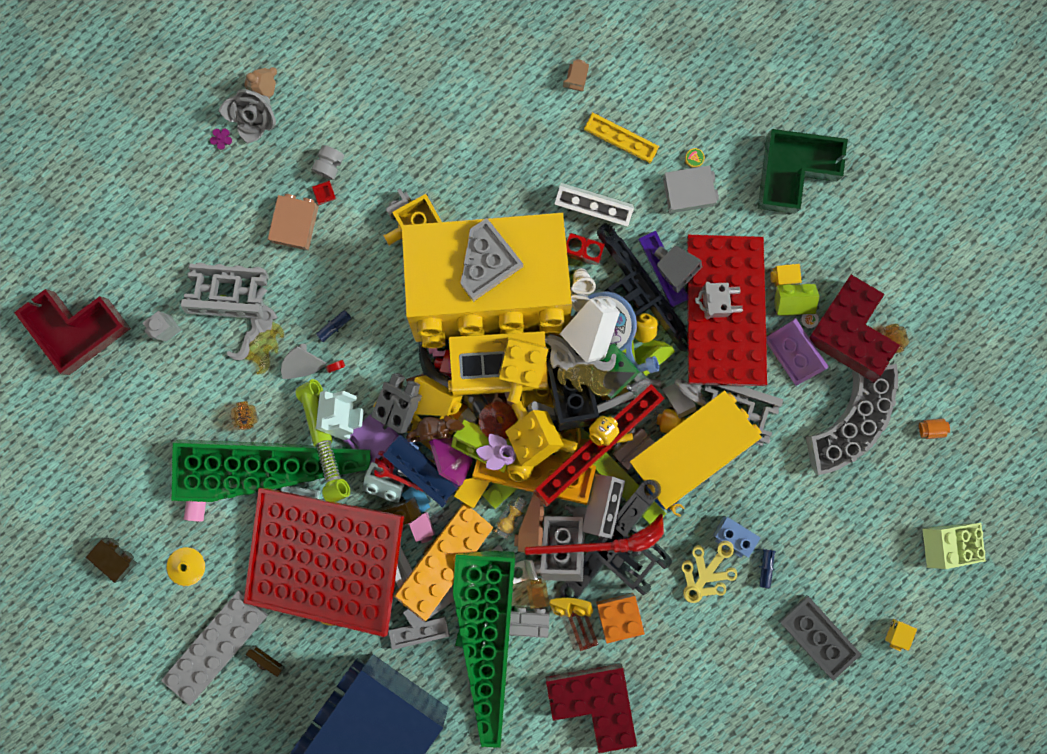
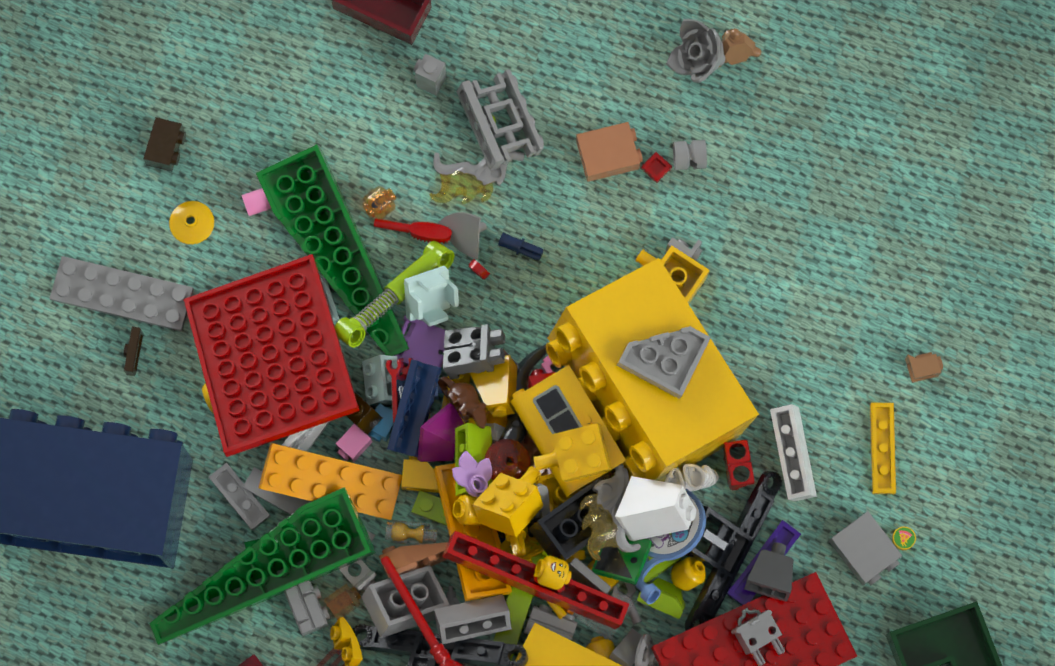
camera: 65 degrees right, 10 degrees down
(221, 138) = (658, 35): magenta plant -> none
(281, 396) = (420, 230): none -> red piece

